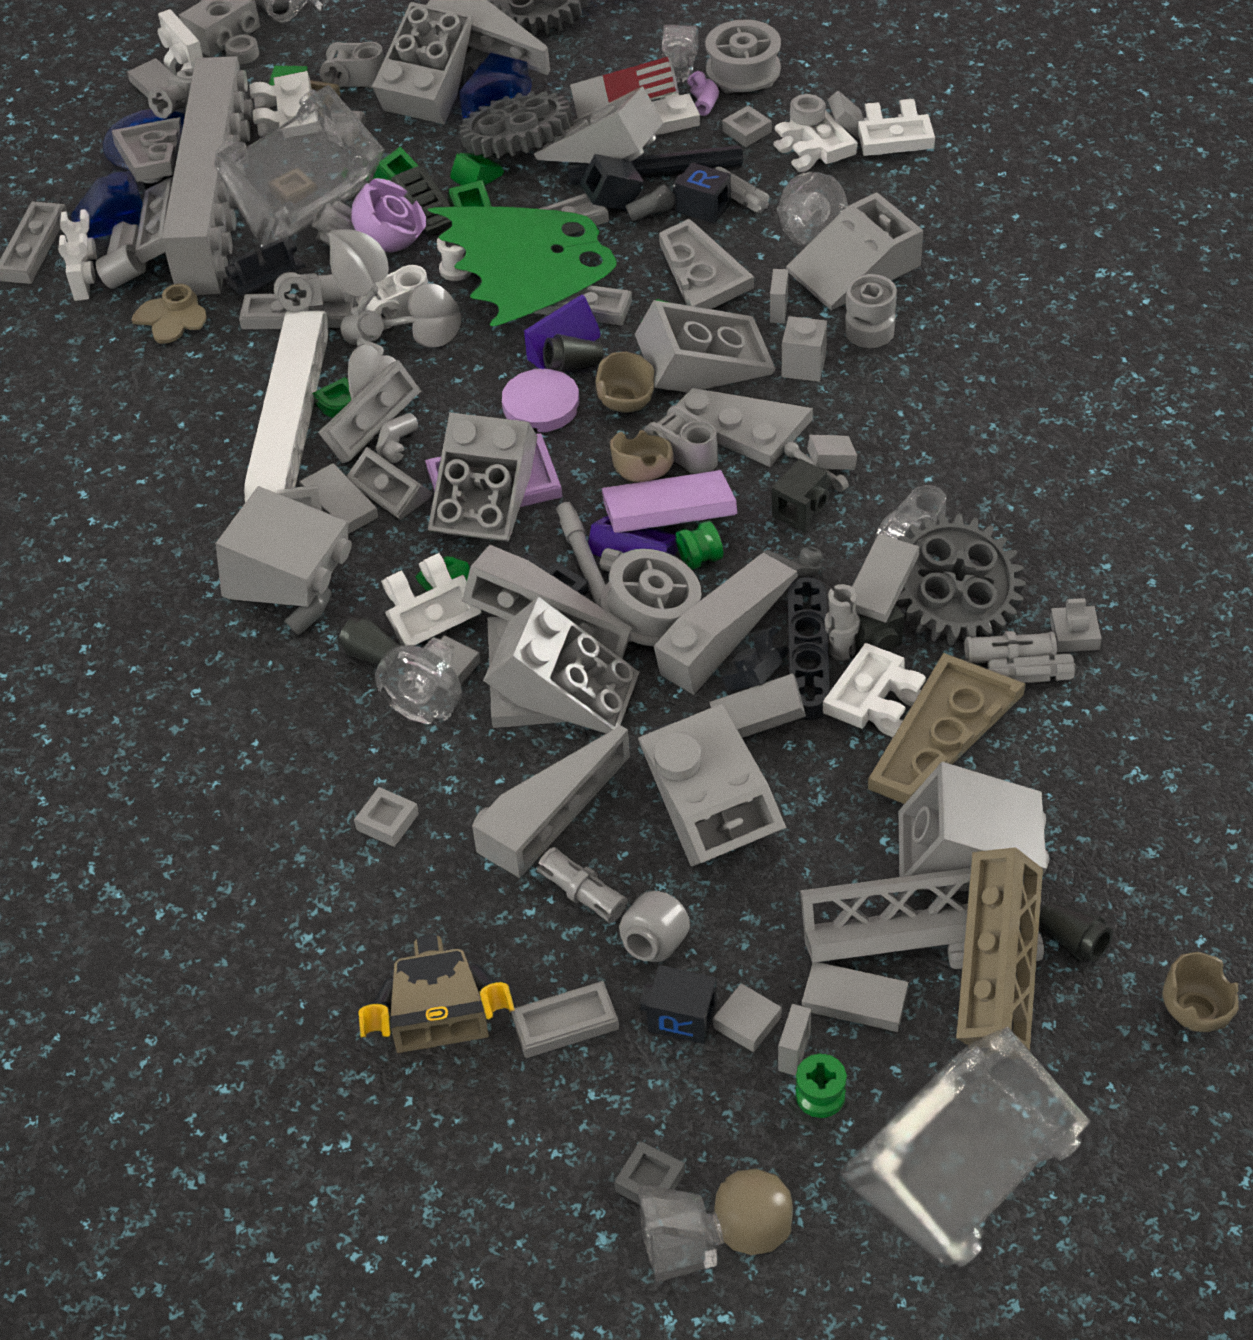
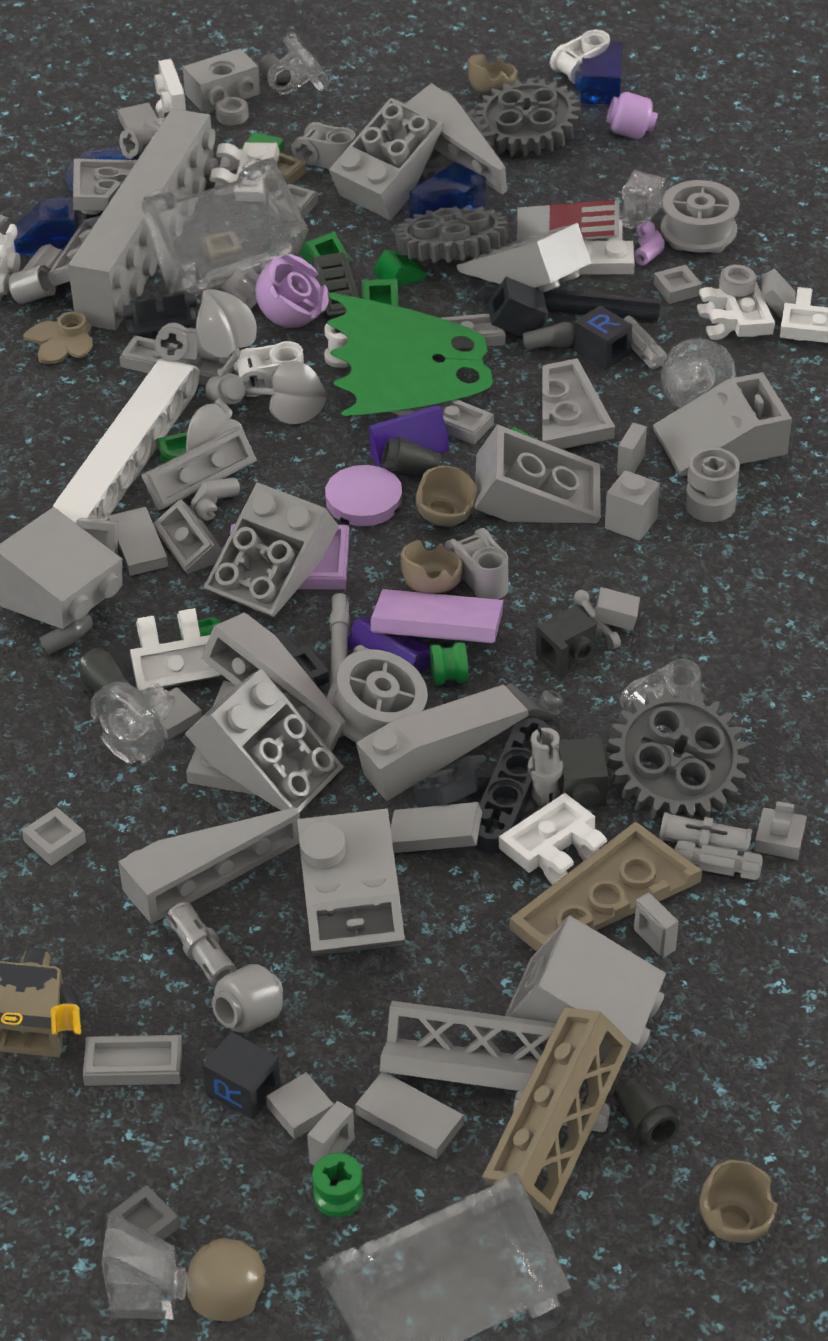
camera: 15 degrees right, 5 degrees down
(749, 424) = (550, 564): light grey wing -> none
(884, 576) = (599, 733): light grey tile -> none
(1005, 747) = (656, 925): none -> light grey tile

